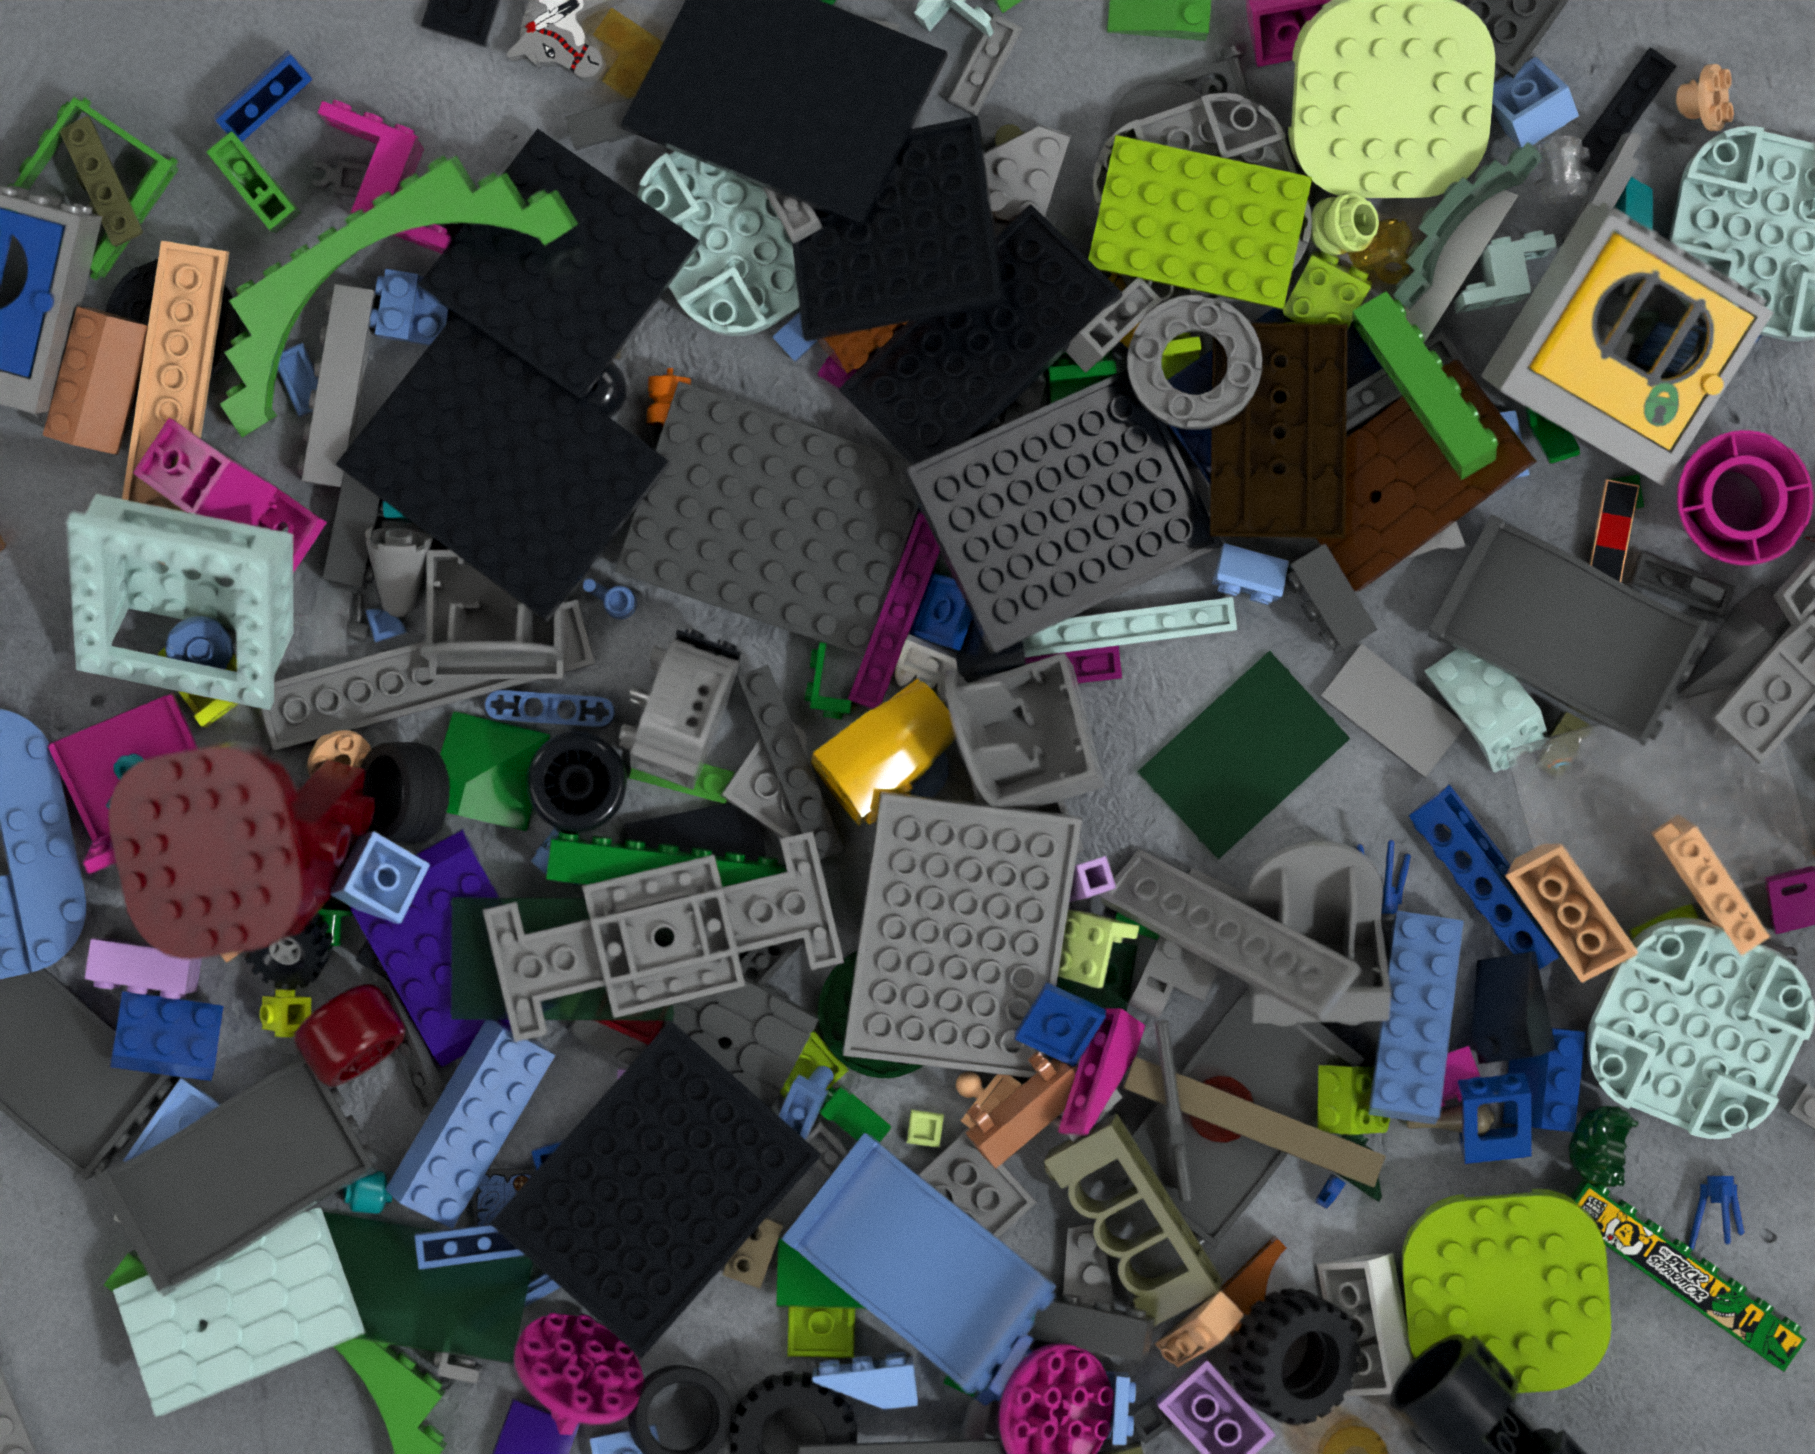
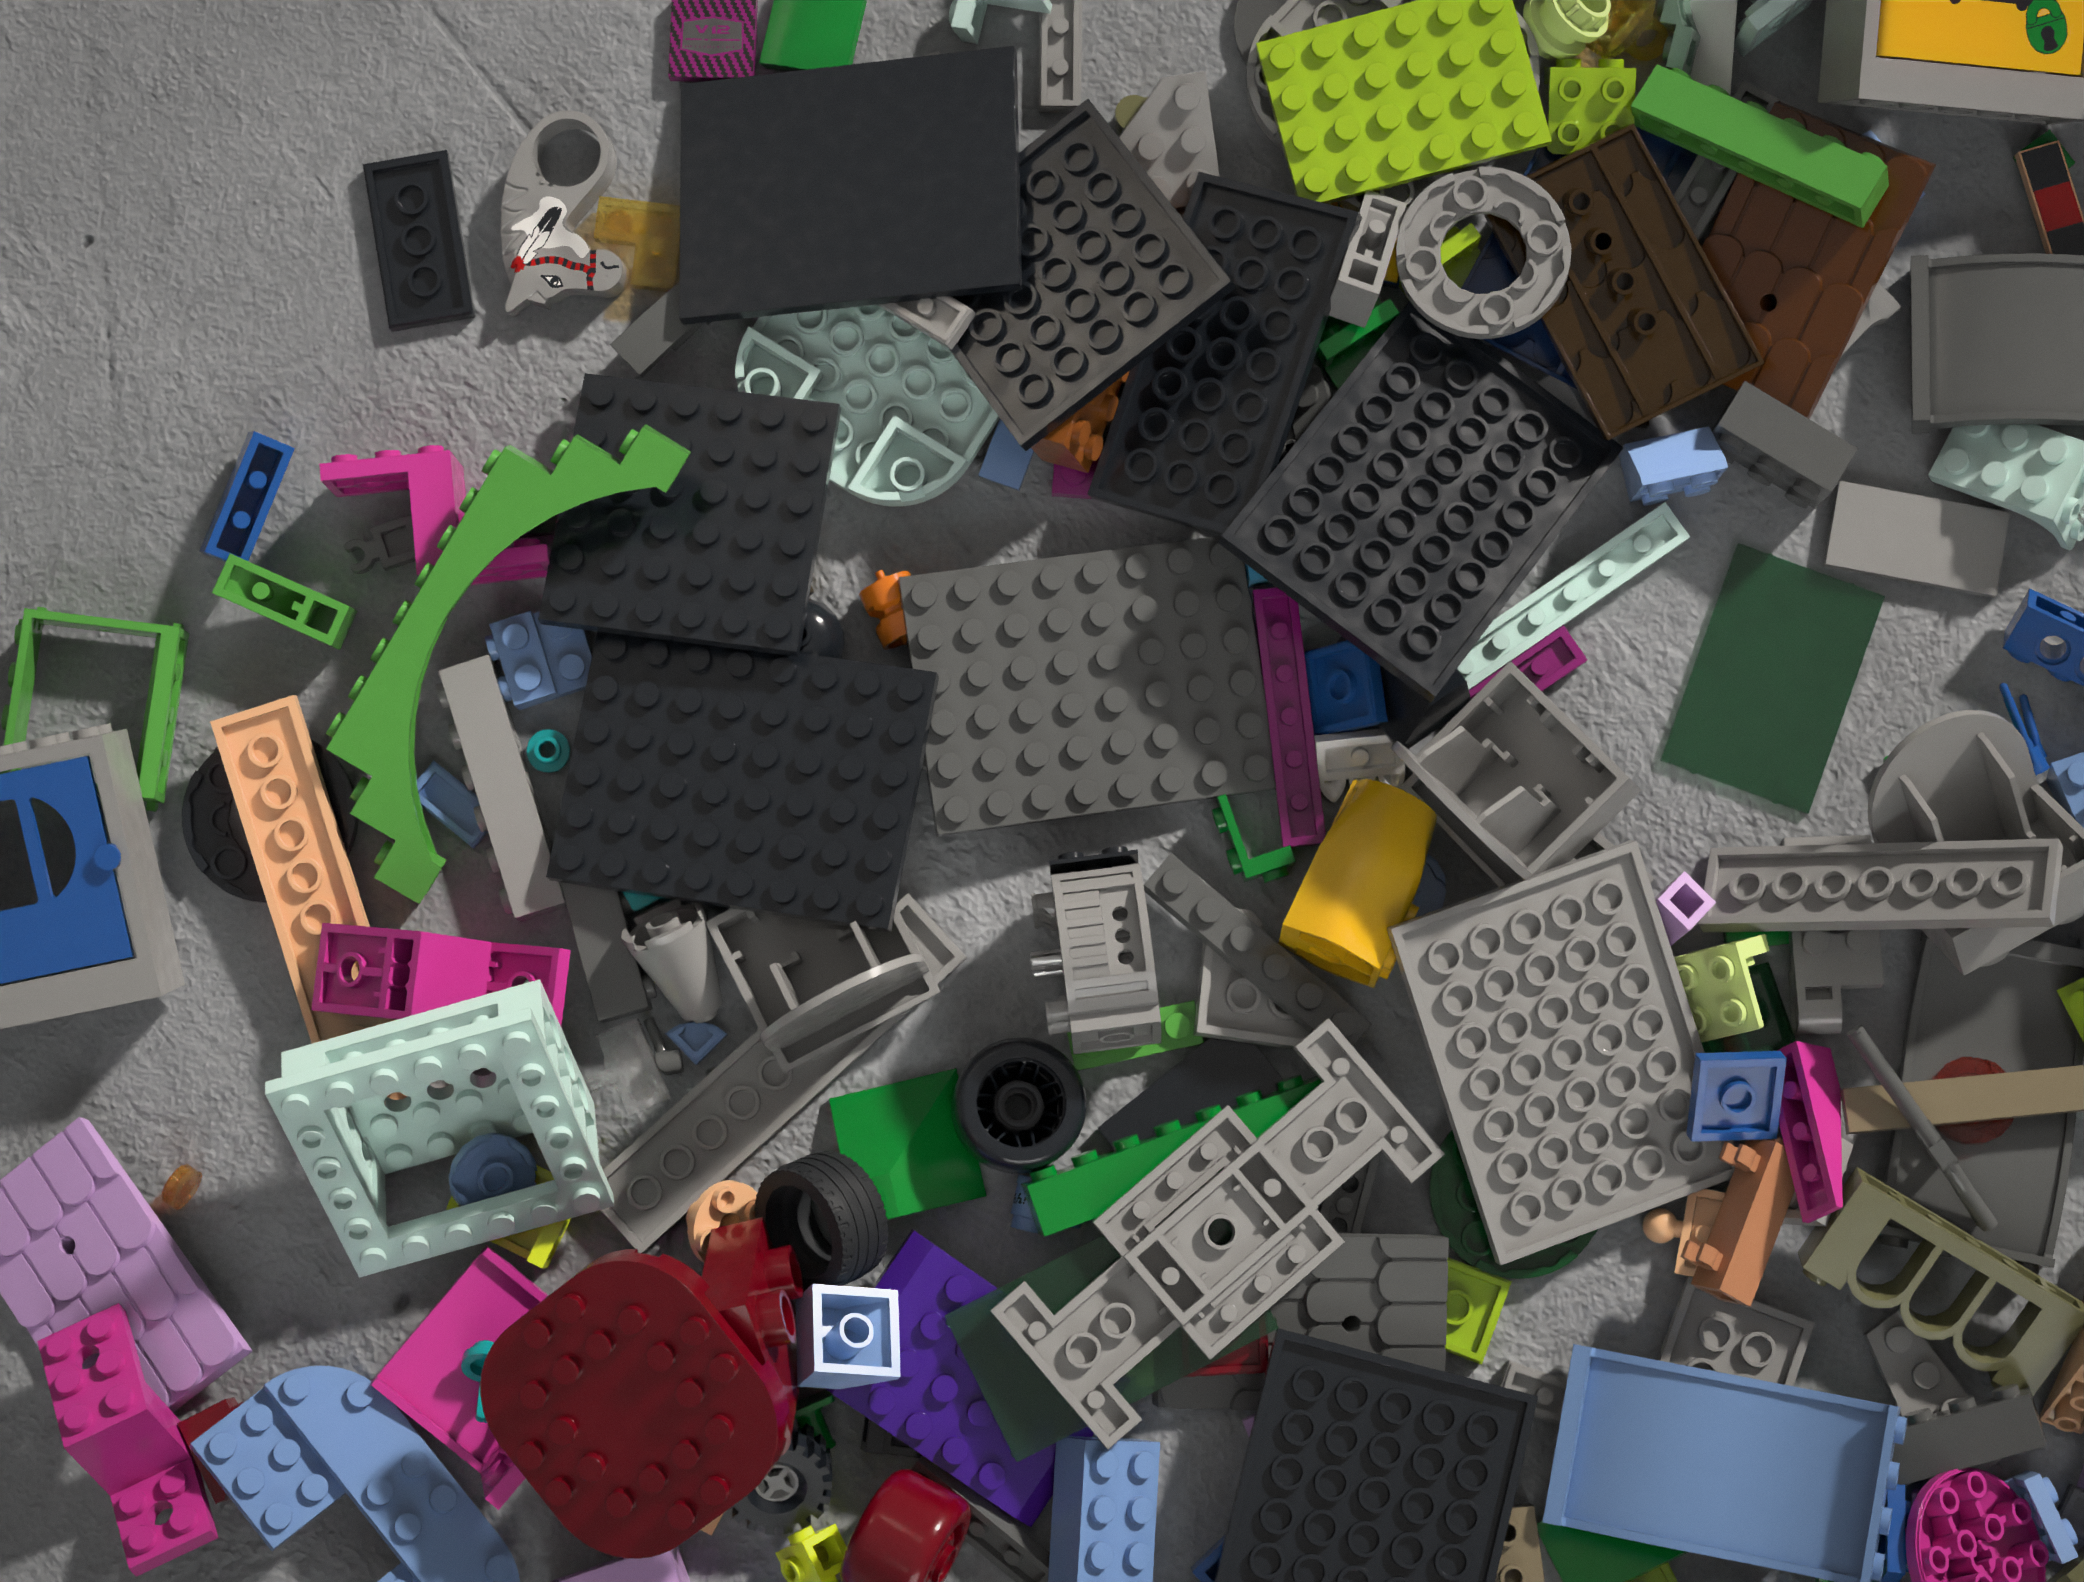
camera: 25 degrees left, 5 degrees down
(97, 381) = (215, 925): nougat slope -> none
(101, 181) = (106, 690): olive bracket -> none
(392, 381) = (558, 760): none -> teal plate
(550, 705) = (943, 1043): medium blue beam -> none
(617, 601) = (956, 871): medium blue piece -> none
(806, 1100) = (1485, 1341): medium blue piece -> none
(853, 1114) = (1544, 1331): green bracket -> none
(925, 1128) = (1636, 1304): yellowish green tile -> none
(1553, 439) = (1928, 133): green bracket -> none

